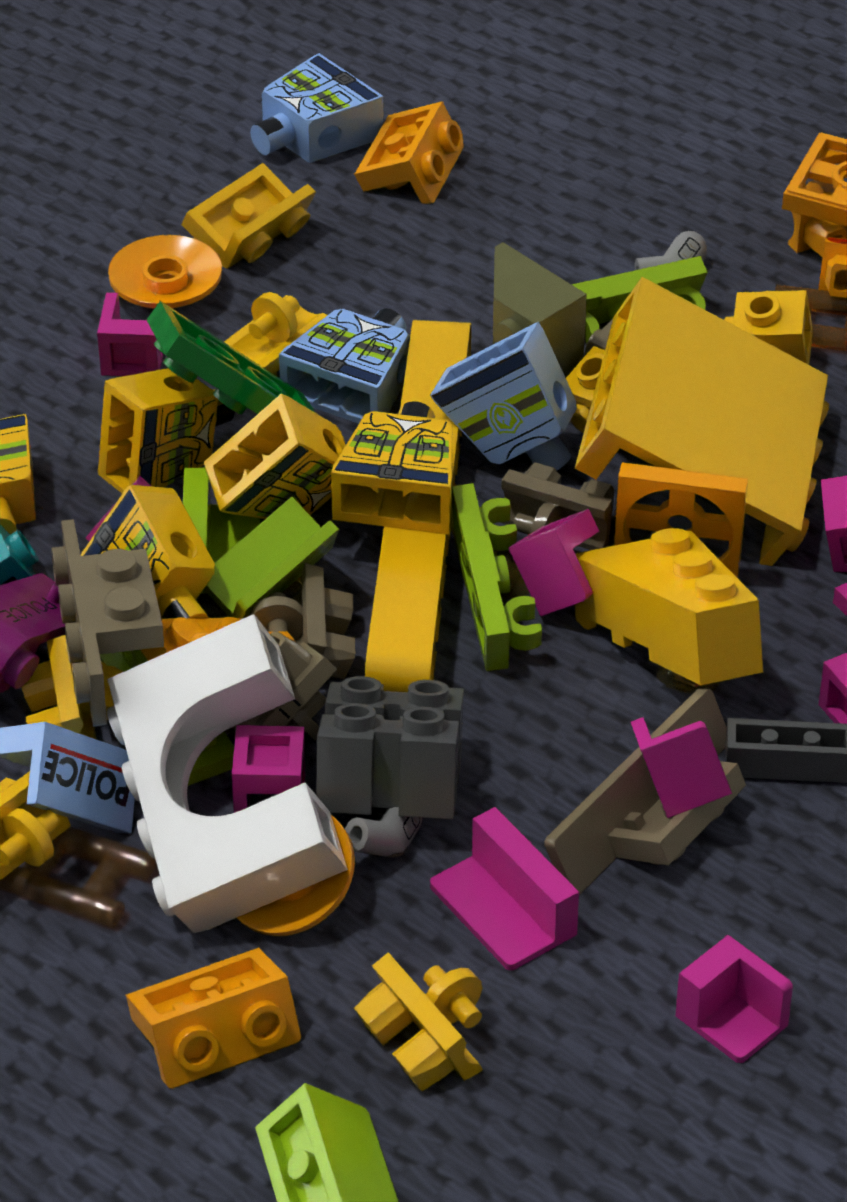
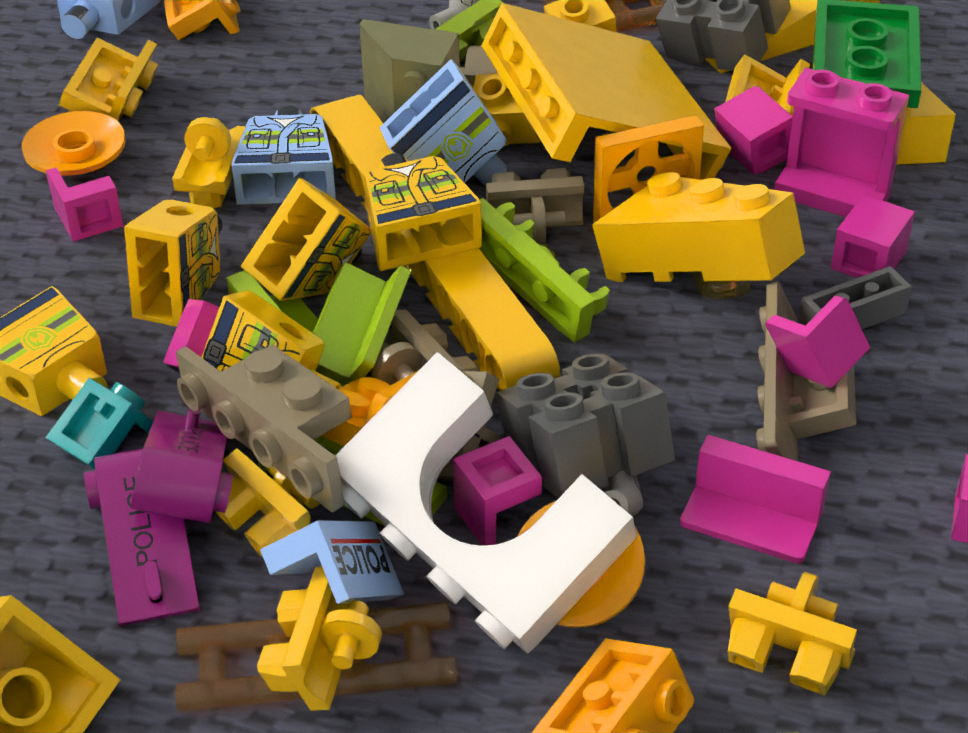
camera: 30 degrees left, 0 degrees up
(196, 353) = (204, 185): green plate -> none
(551, 565) = (580, 235): dark pink panel -> none

